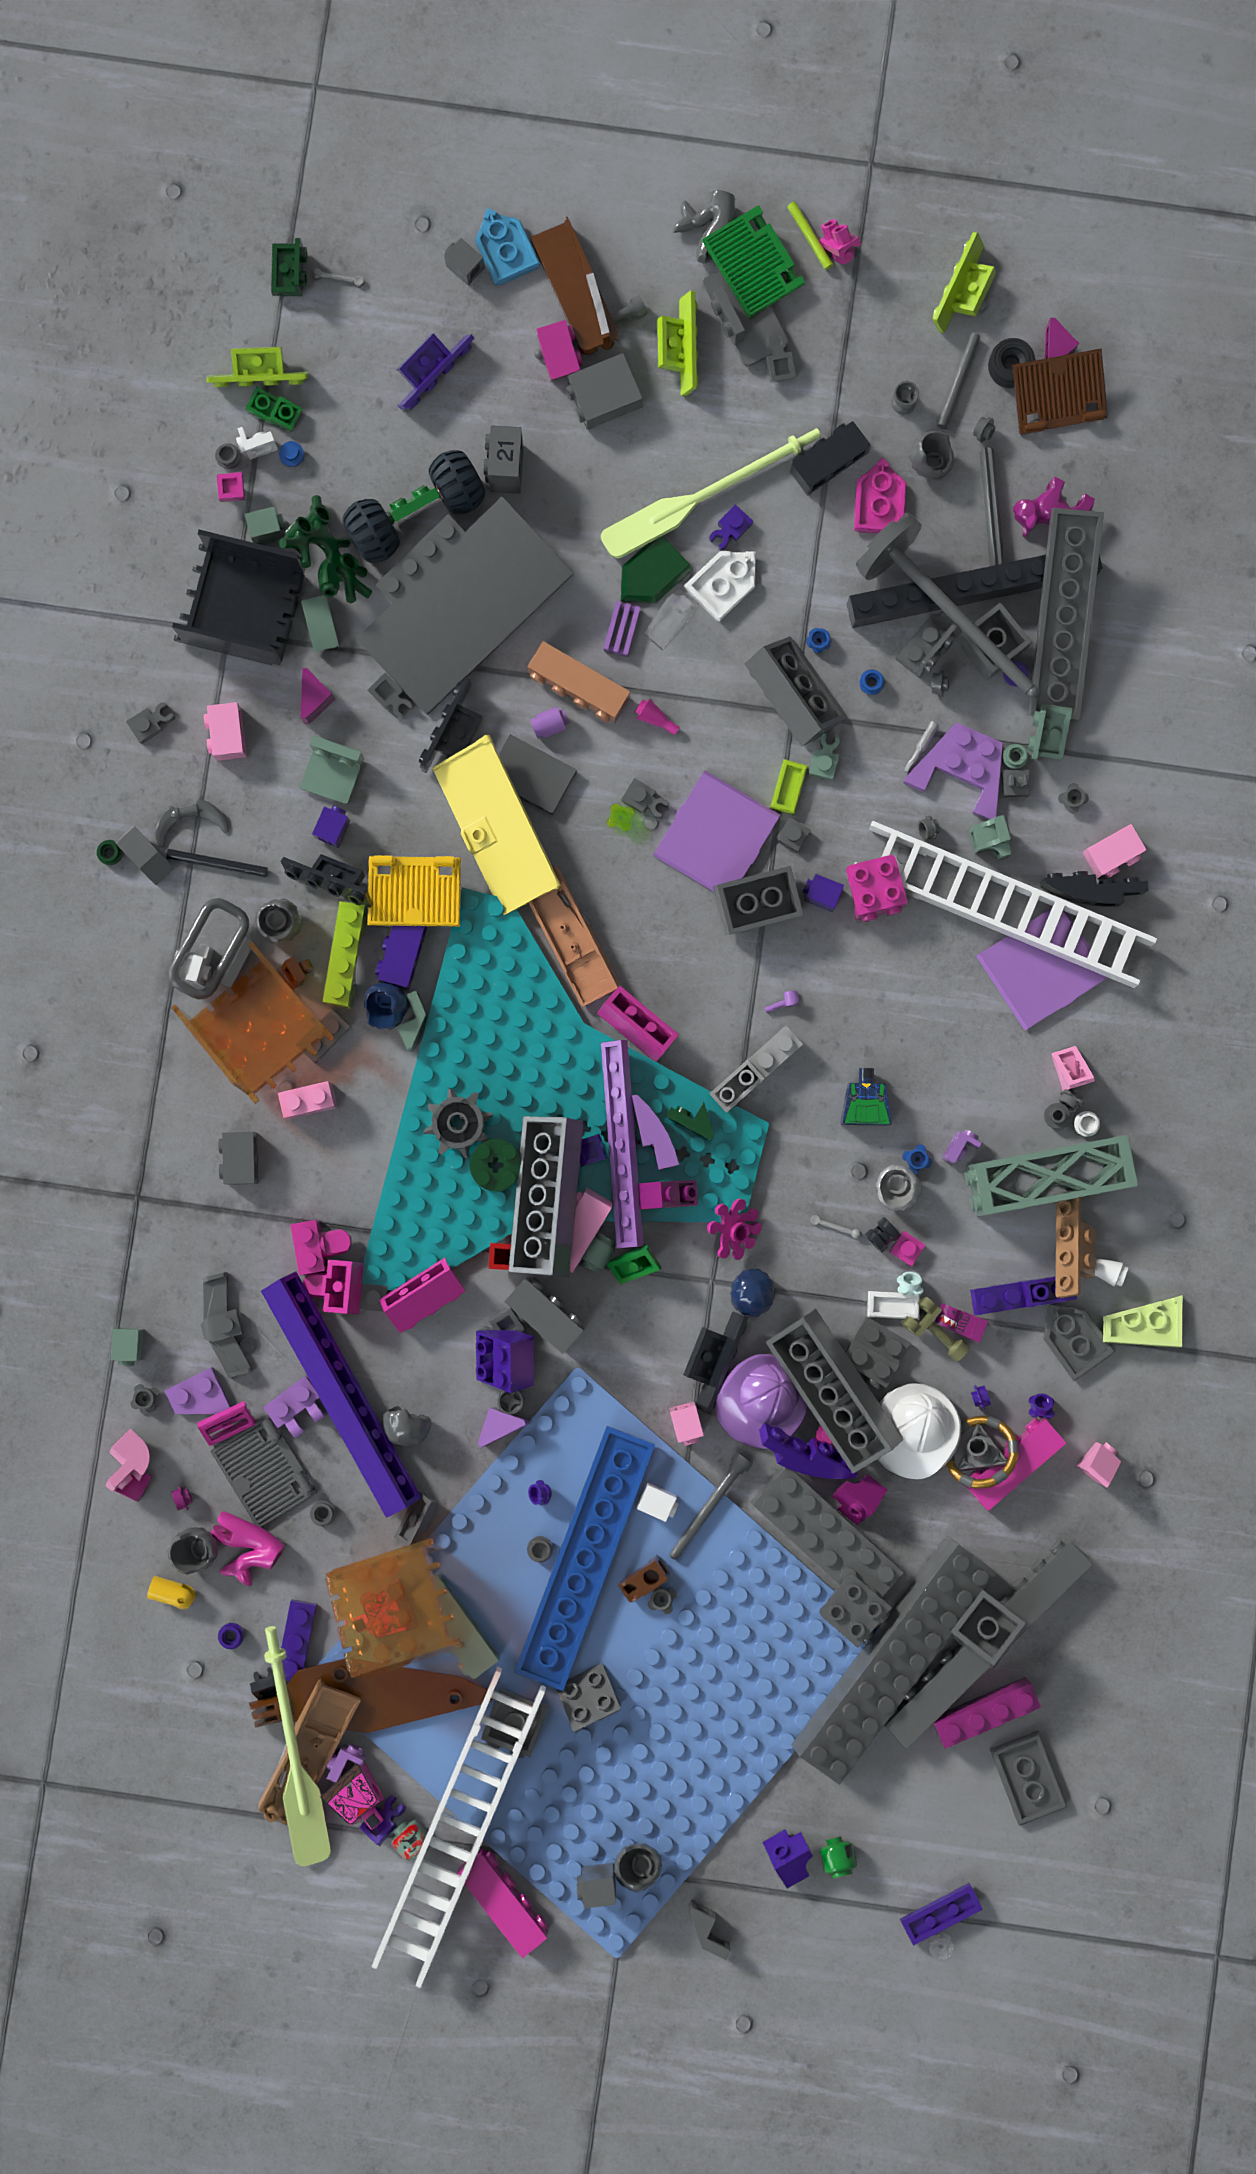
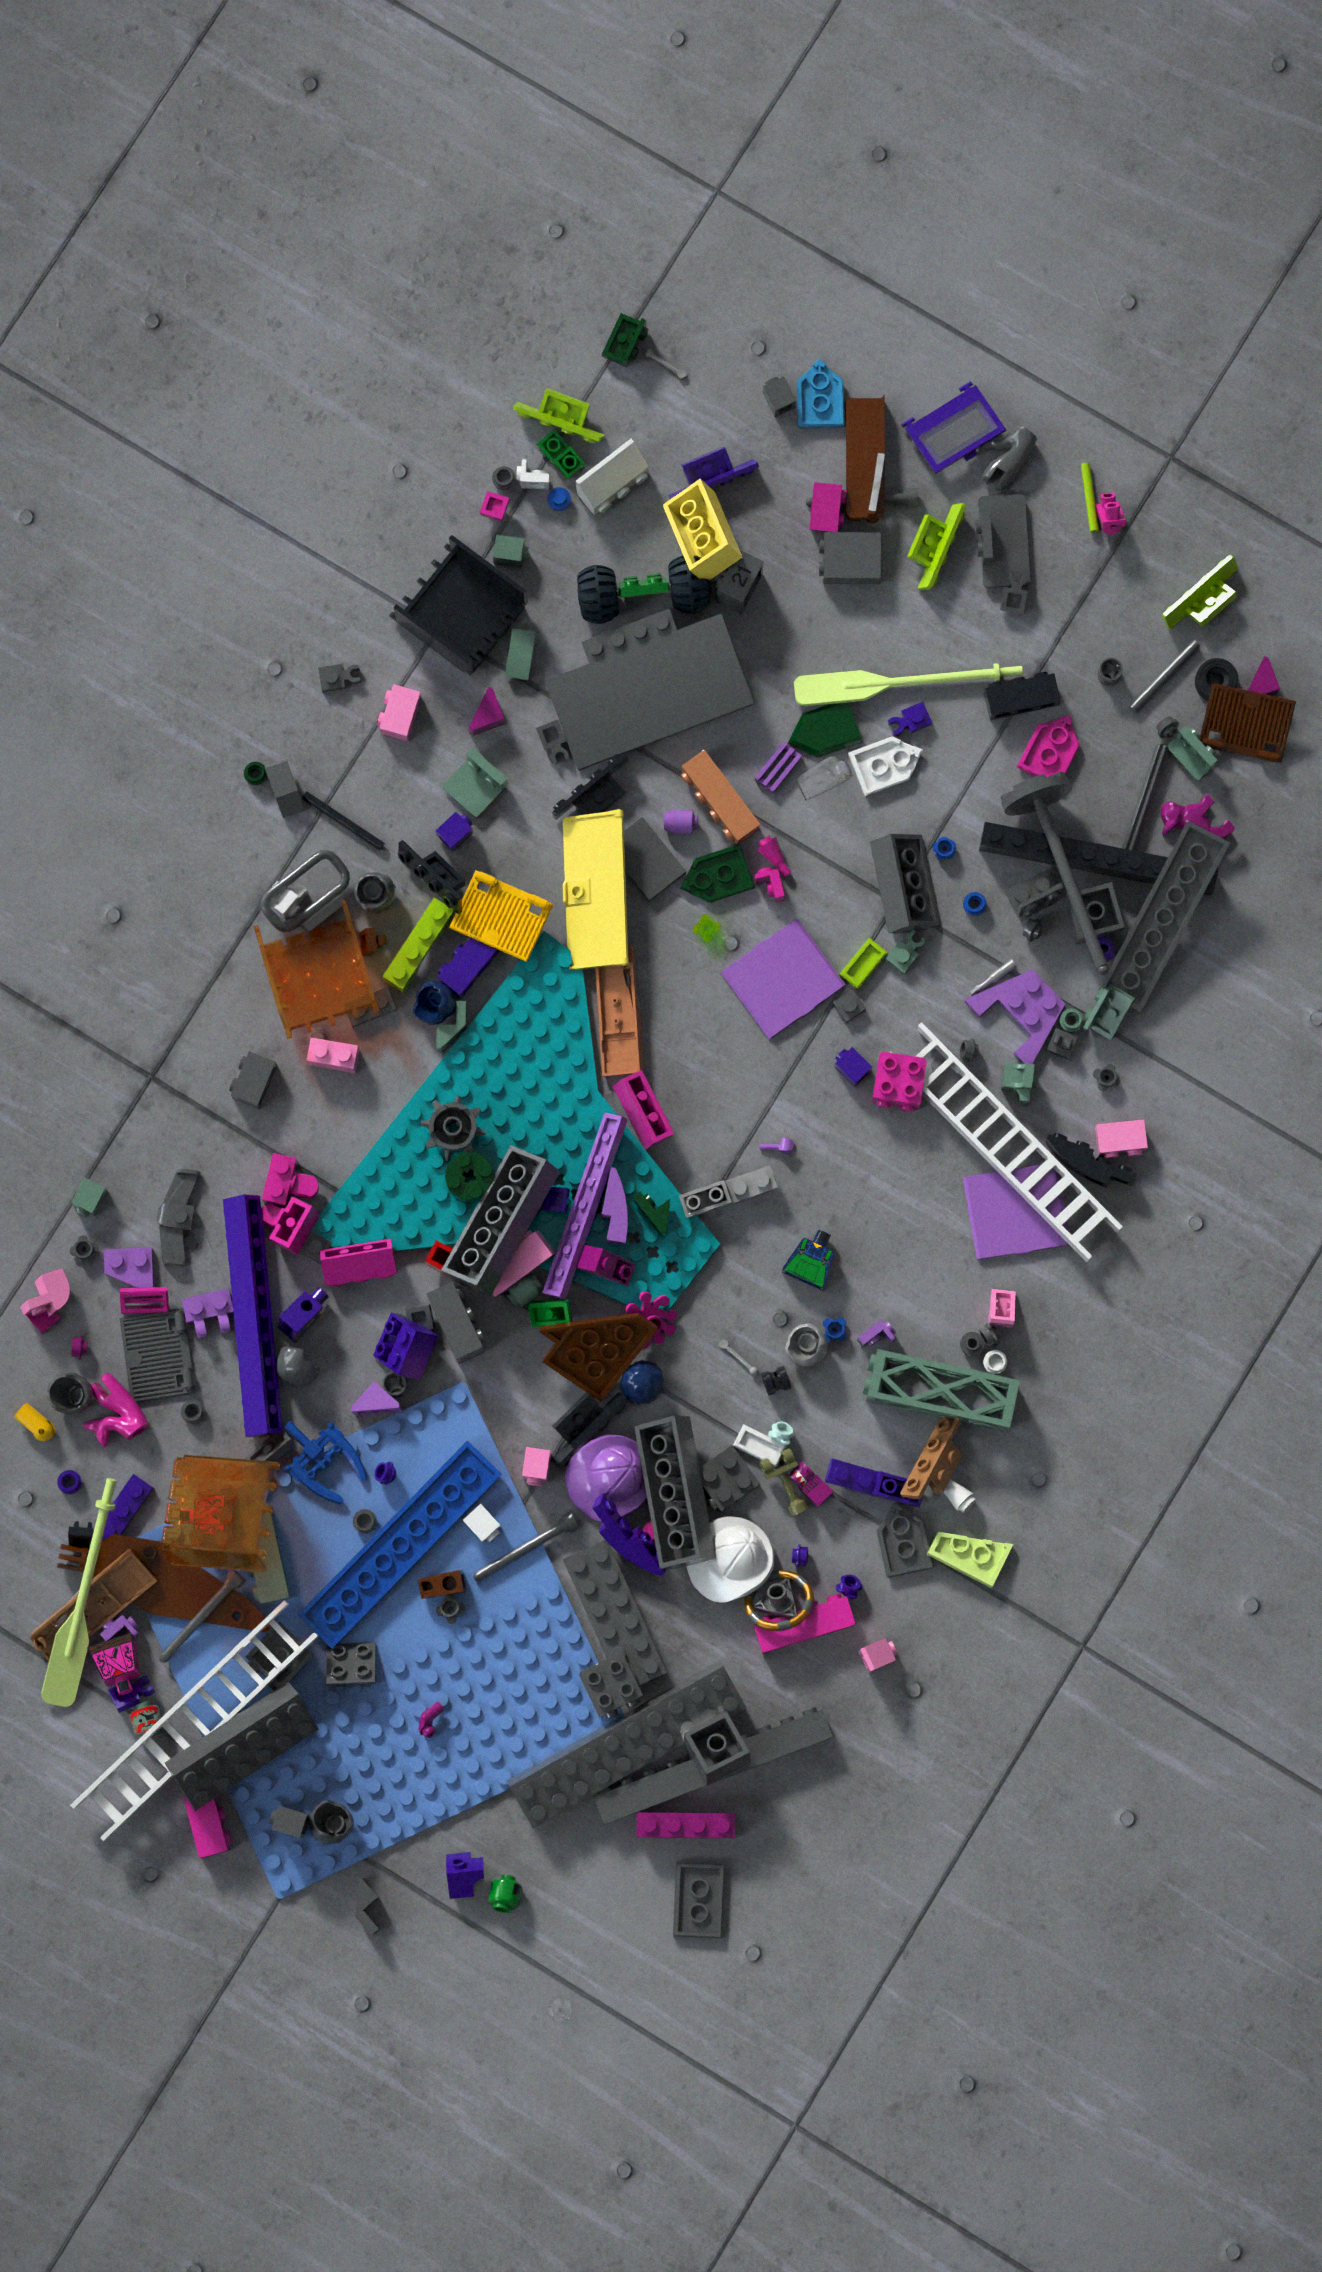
camera: 25 degrees right, 5 degrees down
(201, 808) = (321, 764): dark grey piece -> none
(334, 409) = (612, 477): none -> white slope
(336, 567) = (554, 613): dark green plant -> none
(385, 1381) = (295, 1320): none -> dark purple torso
(436, 1666) = (232, 1581): none -> dark grey piece
(447, 422) = (702, 530): none -> light yellow brick
(460, 1502) = (314, 1451): none -> blue bar
(516, 1835) = (241, 1746): none -> dark grey brick
(610, 759) = (719, 875): none -> dark green tile
(641, 797) = (731, 919): dark grey plate -> none
(651, 221) = (955, 429): none -> piece
(669, 748) = (774, 887): none -> dark pink bracket
(688, 1727) = (426, 1720): none -> magenta arm
(696, 1283) = (597, 1350): none -> reddish brown wing
(753, 262) = (1028, 501): green window -> none
(758, 900) = (792, 1048): dark grey brick -> none
(859, 1499) = (656, 1595): magenta brick -> none
(907, 1248) = (792, 1402): dark pink plate -> none
(932, 455) = (1111, 731): dark grey hair -> none
(941, 1914) = (572, 1981): dark purple plate -> none
(1020, 443) = (1192, 753): none -> sand green bracket

